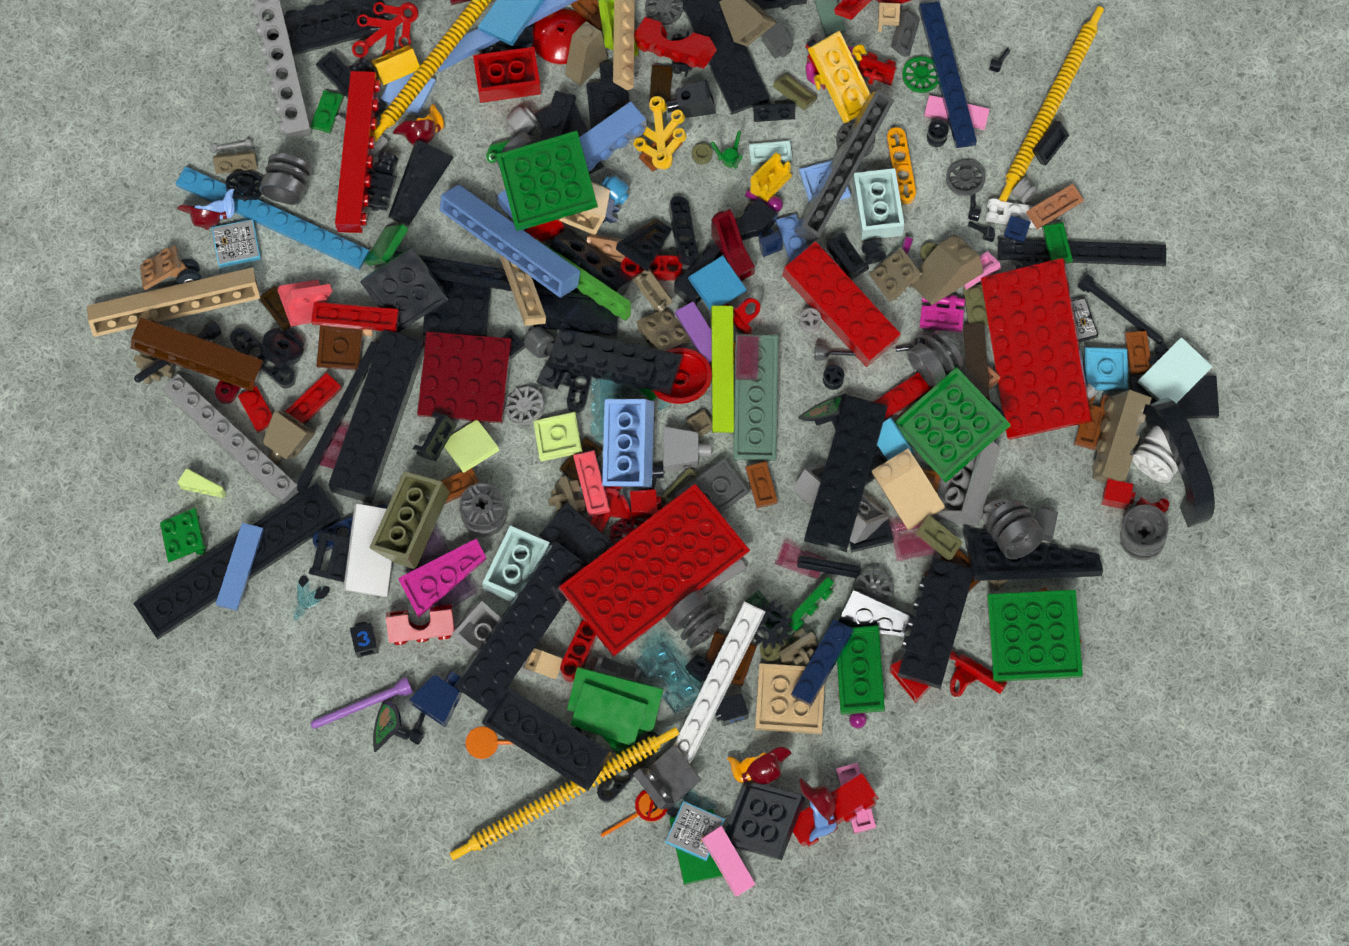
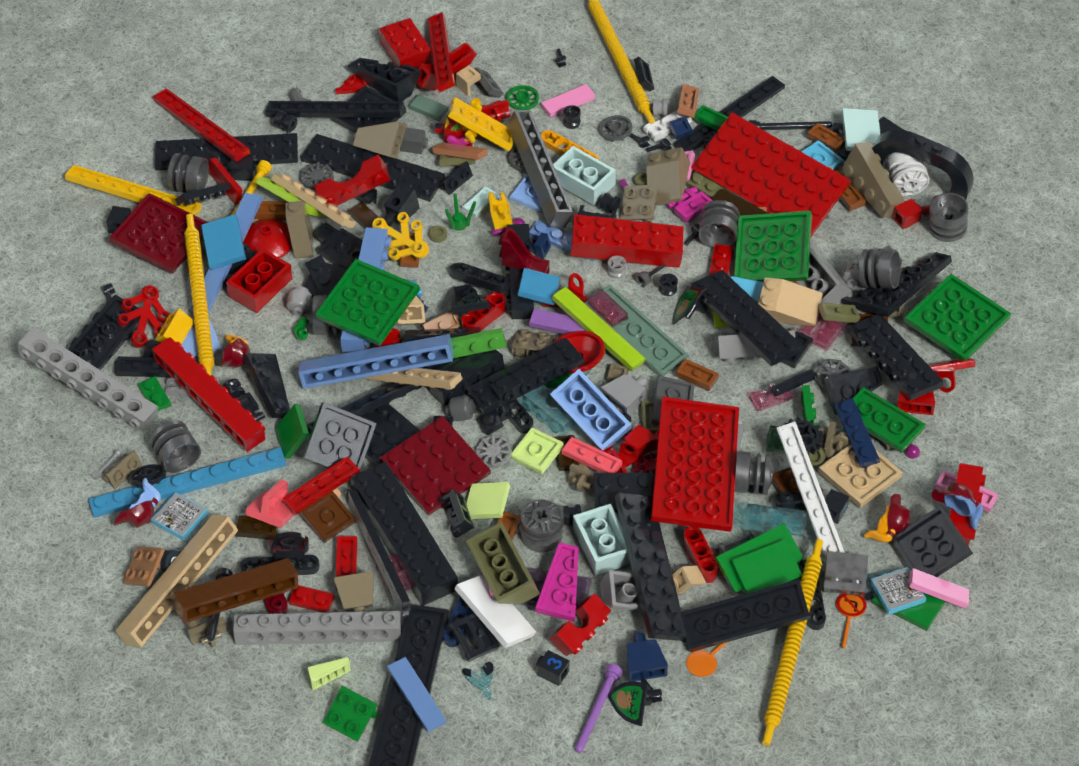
camera: 45 degrees left, 20 degrees down
(521, 520) = (569, 512): none -> black wheel
(653, 290) = (493, 320): dark tan hinge -> none
(801, 86) = (460, 151): none -> nougat tile
(947, 75) = (540, 84): dark blue plate -> none

